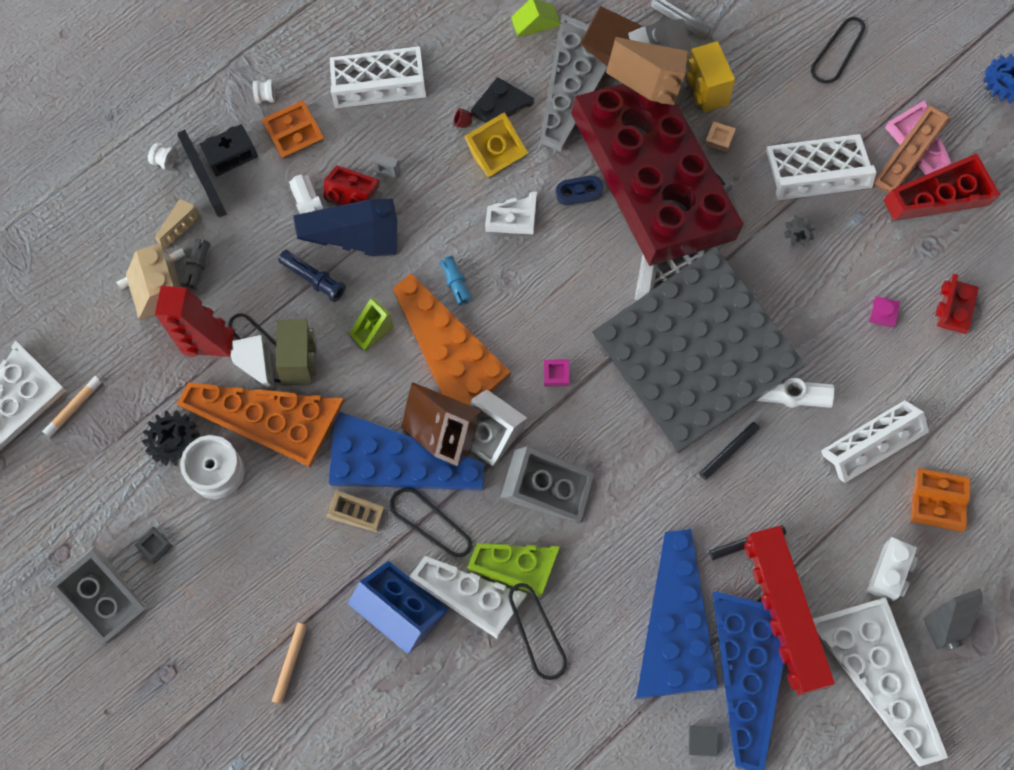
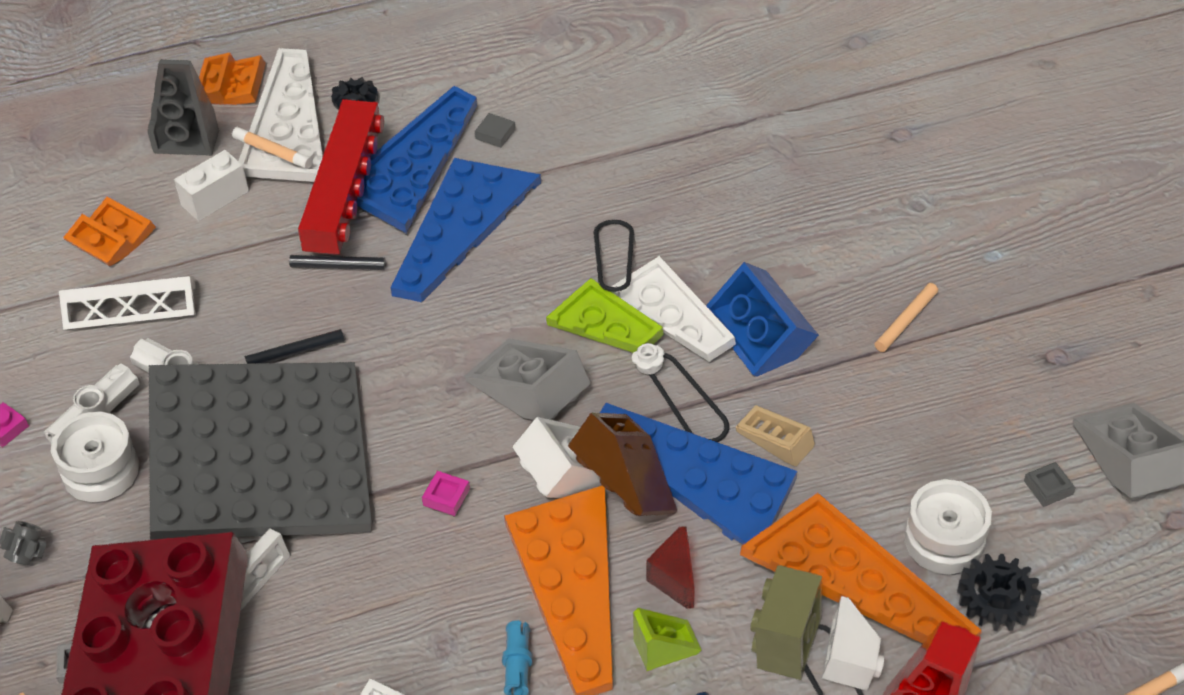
camera: 160 degrees left, 20 degrees down
(384, 373) = (671, 569): none -> clear red slope
(465, 544) = (648, 358): none -> white plate
(797, 299) = (95, 456): none -> white wheel
(830, 354) = (99, 397): none -> white piece
(836, 740) = (365, 88): none -> black gear
(869, 626) = (272, 147): none -> light nougat bar
(968, 709) = (232, 80): none -> orange slope

